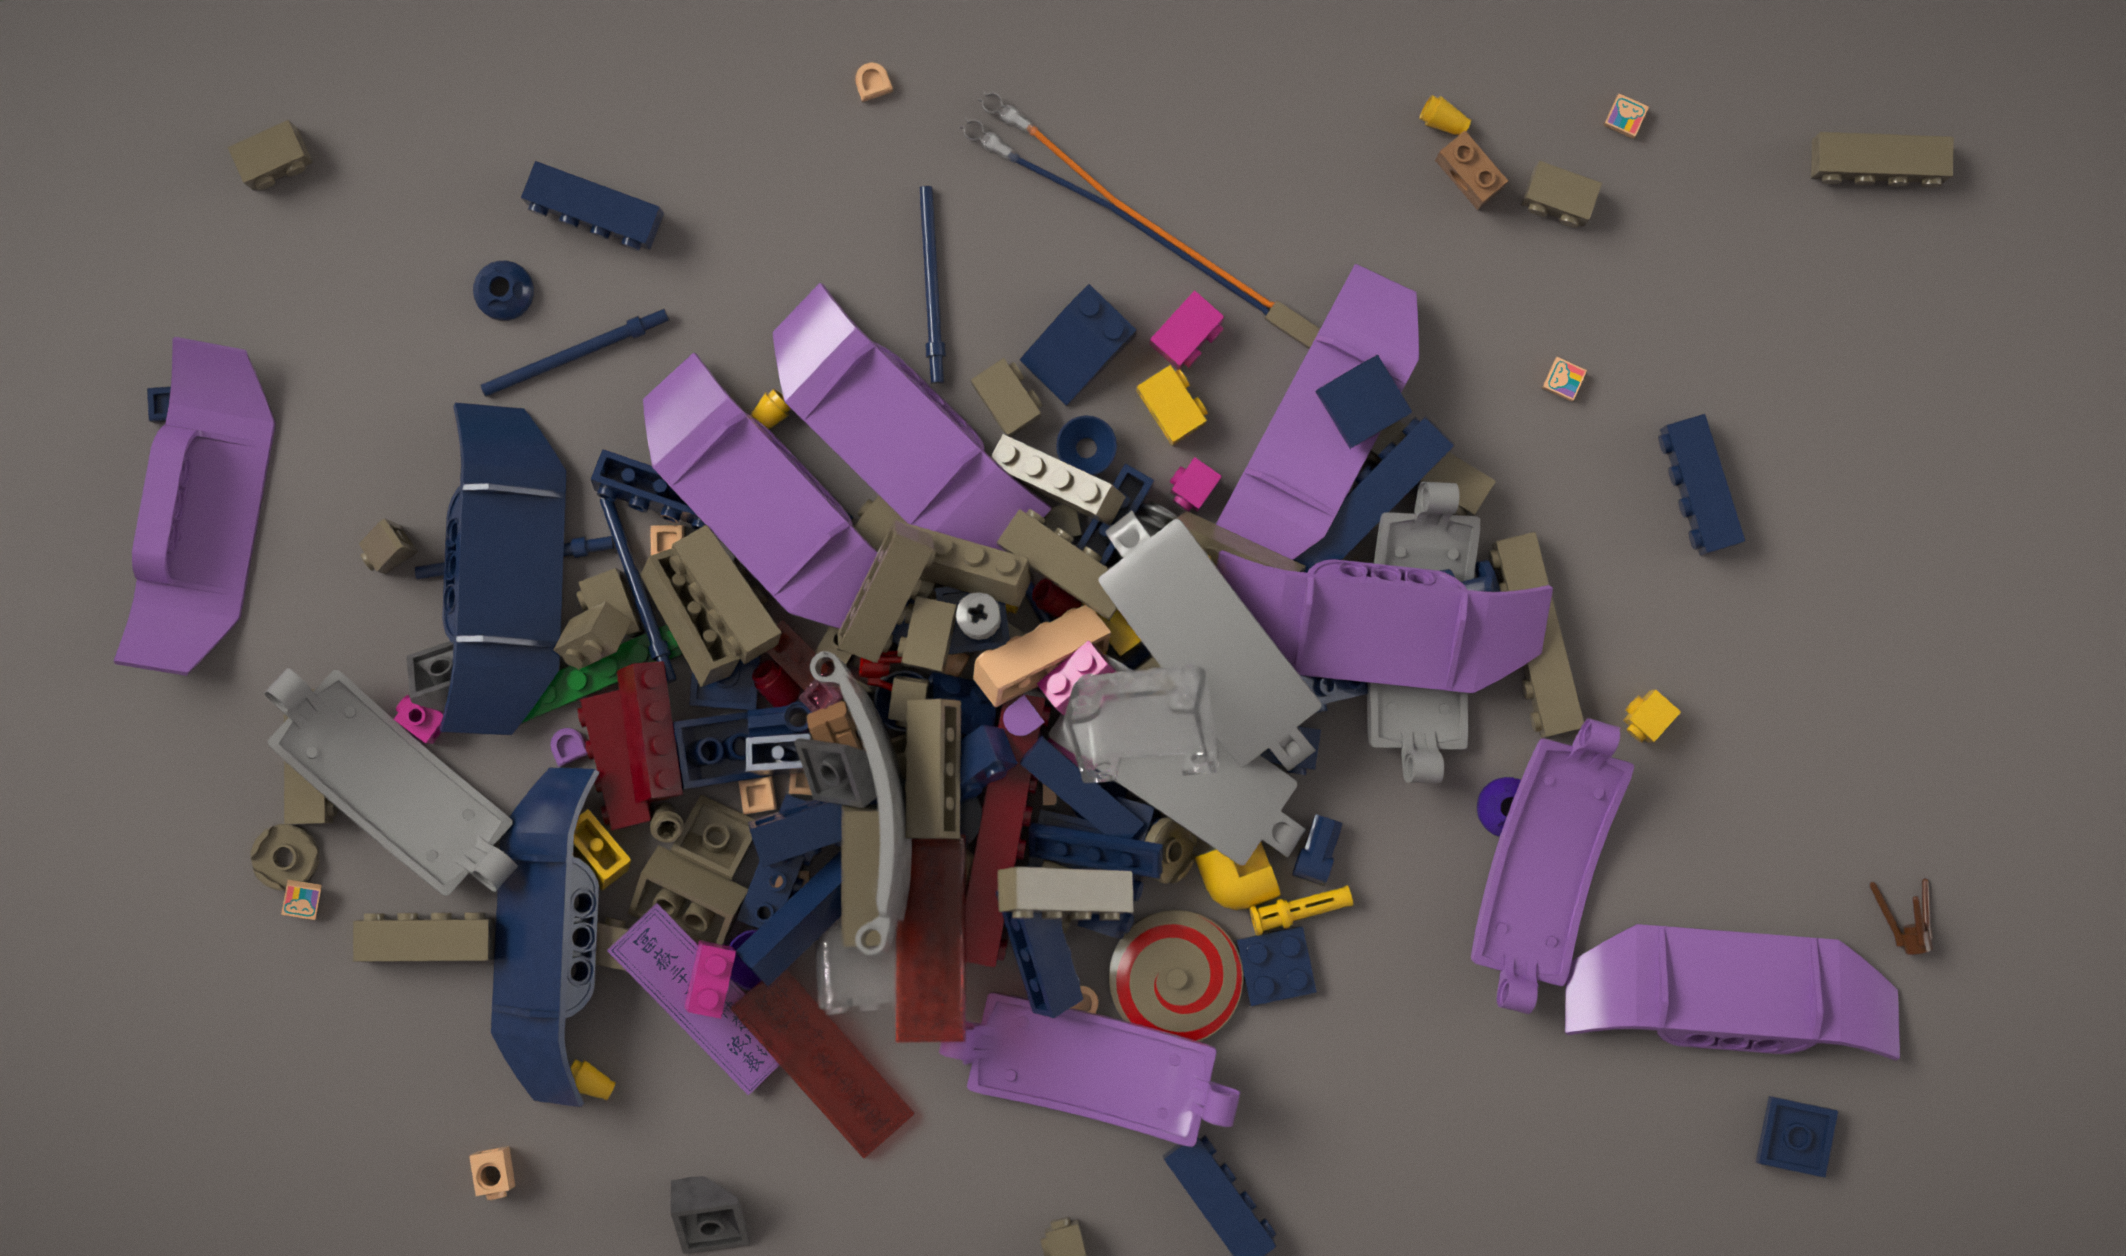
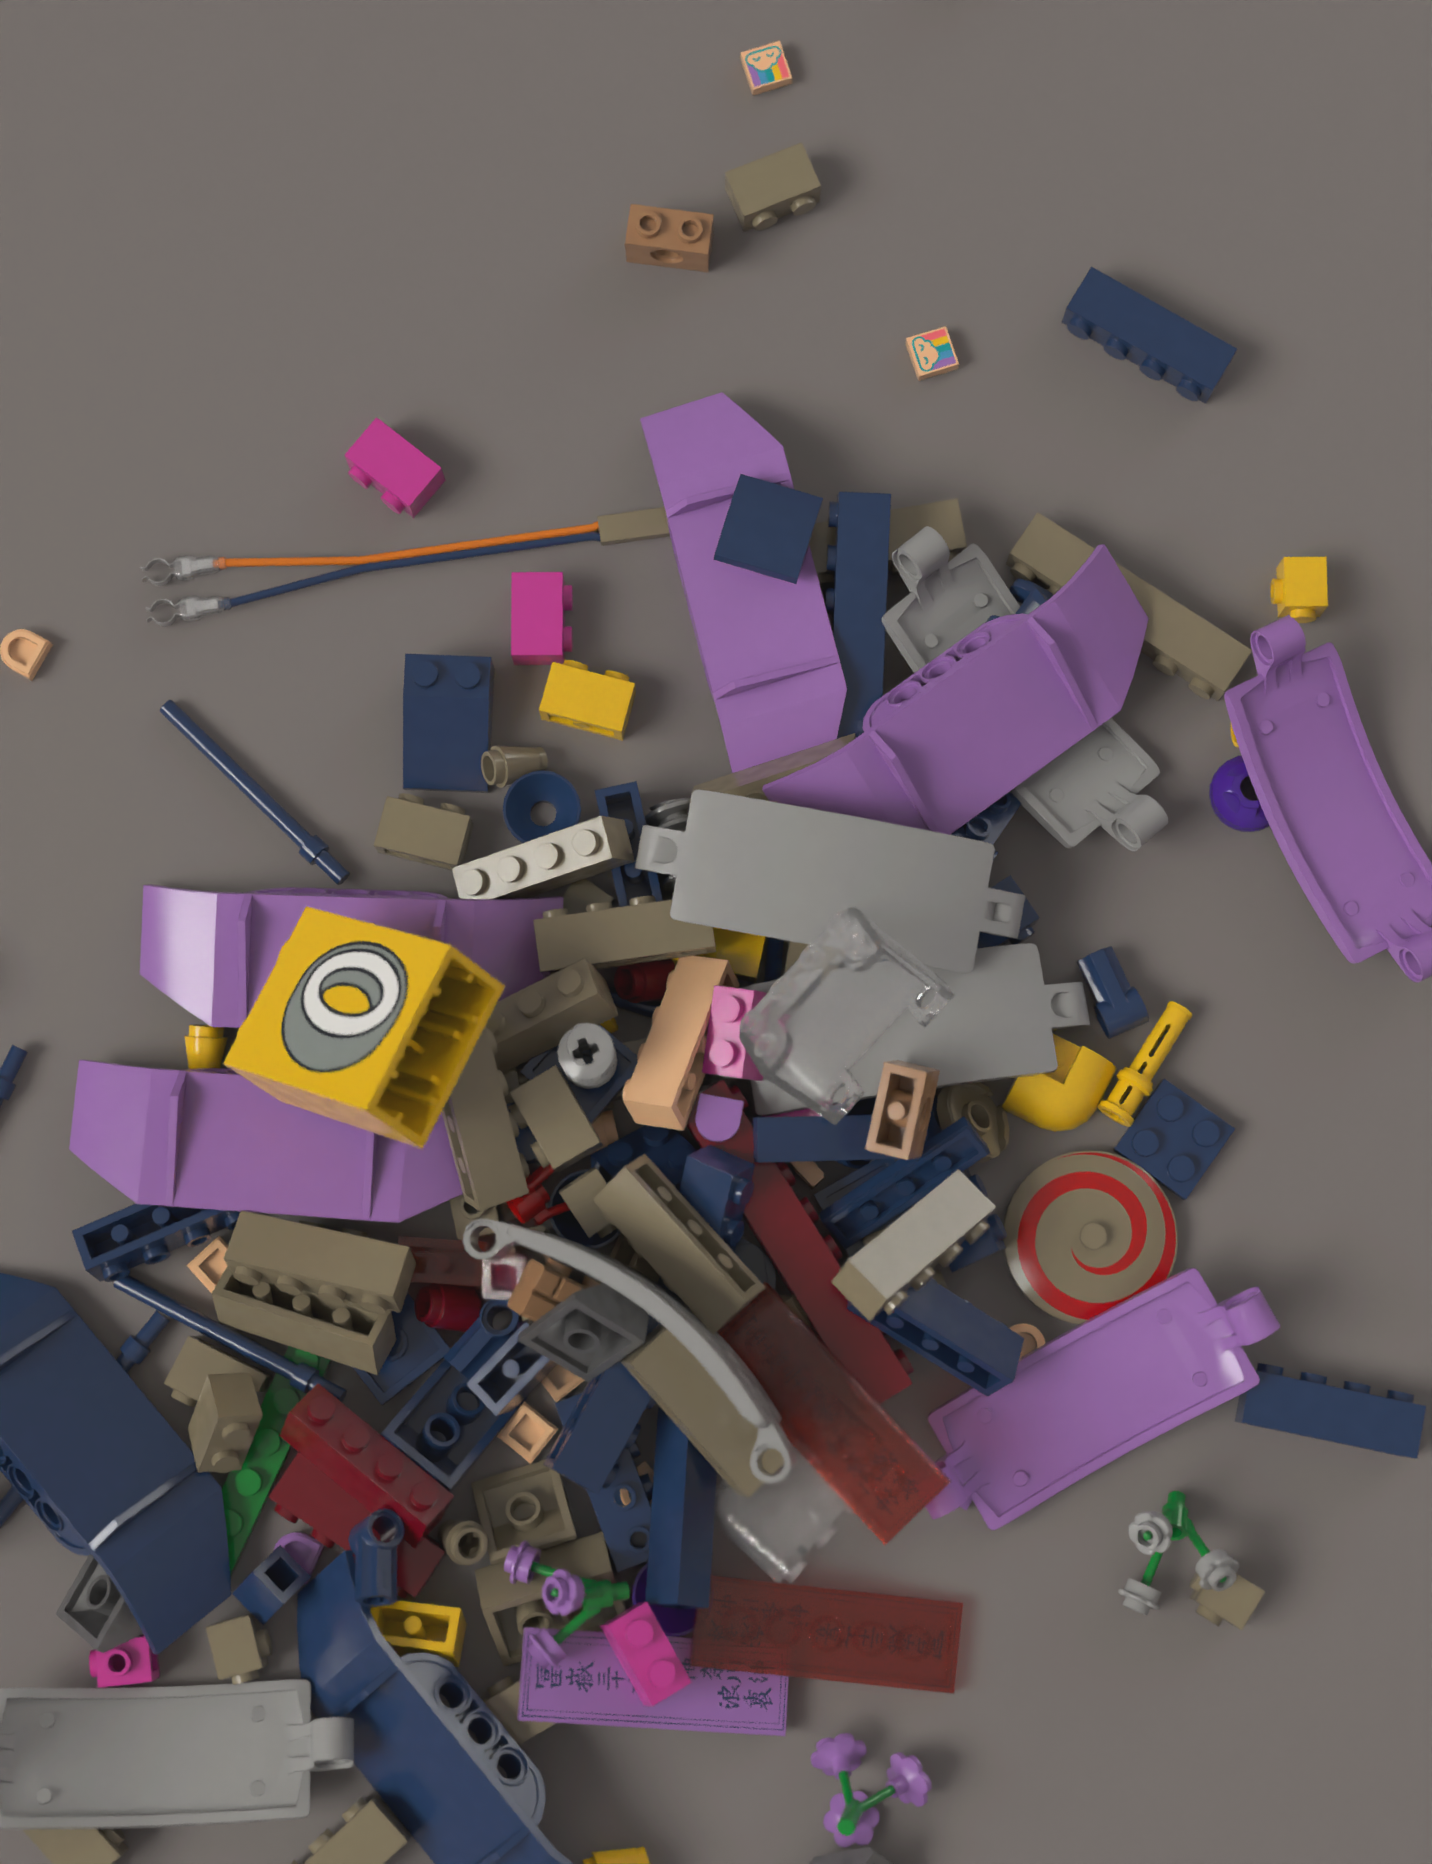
camera: 45 degrees left, 5 degrees down
(490, 768) = (239, 1648): none -> dark tan brick
(538, 750) = (271, 1584): none -> dark blue brick
(607, 791) = (376, 1559): none -> dark blue piece
(691, 905) = (561, 1595): none -> medium lavender plant
(748, 1173) = (853, 1812): none -> medium lavender plant
(865, 486) = (365, 1025): none -> yellow brick
(1054, 1174) = (1153, 1536): none -> light grey plant
(1092, 402) = (508, 763): none -> dark tan cone
(1129, 809) = (902, 1109): none -> medium nougat brick
(1183, 164) = (393, 468): none -> dark pink brick
(1193, 485) = (677, 756): dark pink brick -> none
(1444, 116) = (598, 212): yellow cone -> none

